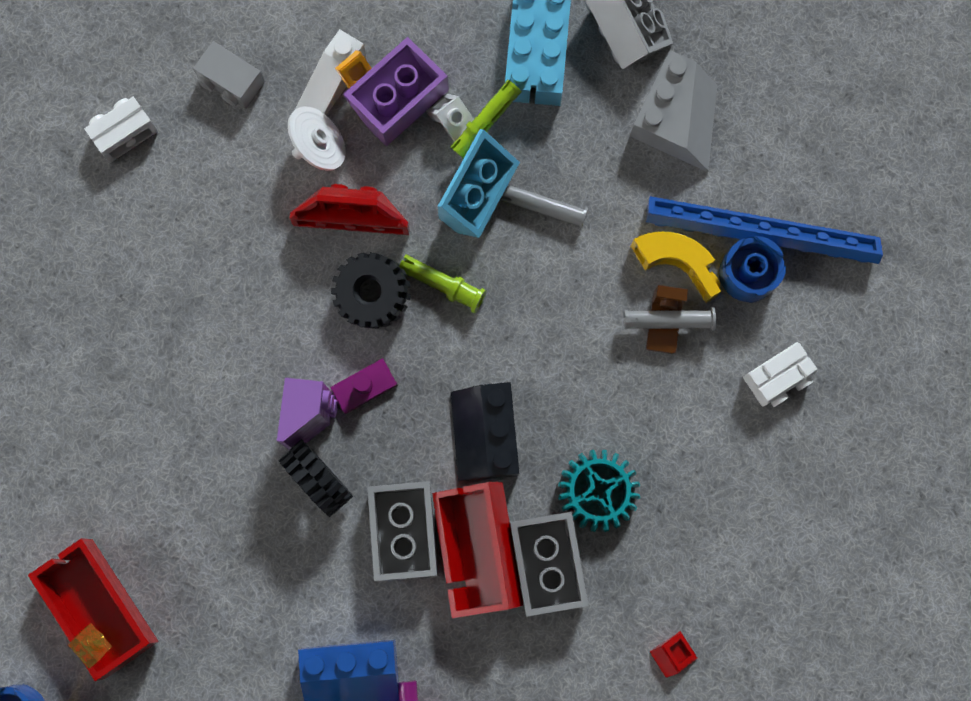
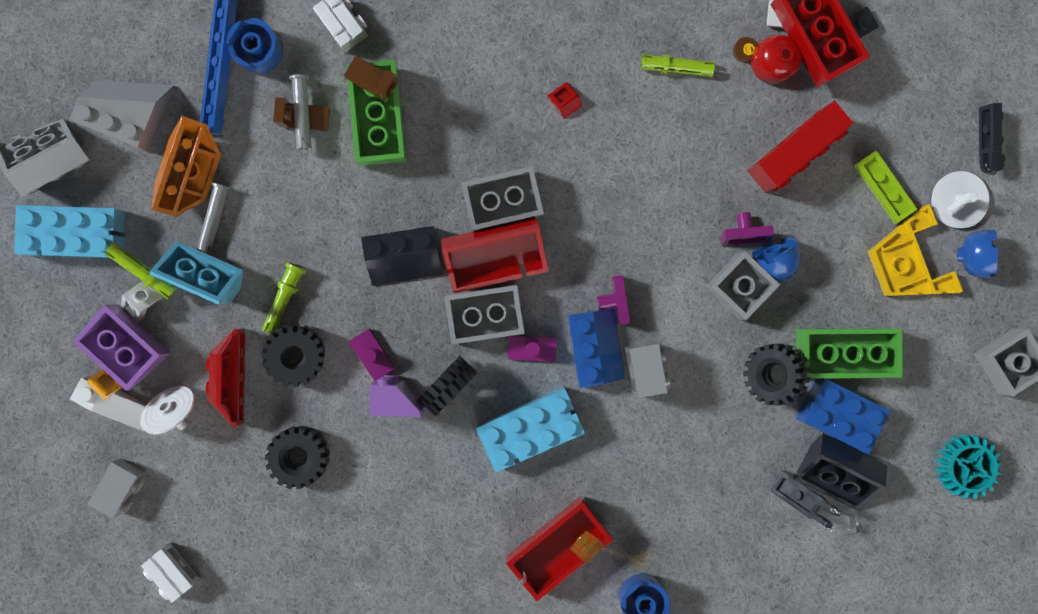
camera: 95 degrees left, 10 degrees up
(229, 272) = (284, 469): none -> black tyre
(251, 581) = (529, 429): none -> medium azure piece
(355, 591) = (532, 348): none -> magenta tile
(605, 503) = (452, 157): teal gear -> none
(606, 178) = (185, 168): none -> orange wedge
(664, 411) = (377, 124): none -> bright green brick
(682, 252) = (245, 104): yellow arch -> none
(706, 408) = (371, 78): none -> reddish brown bracket

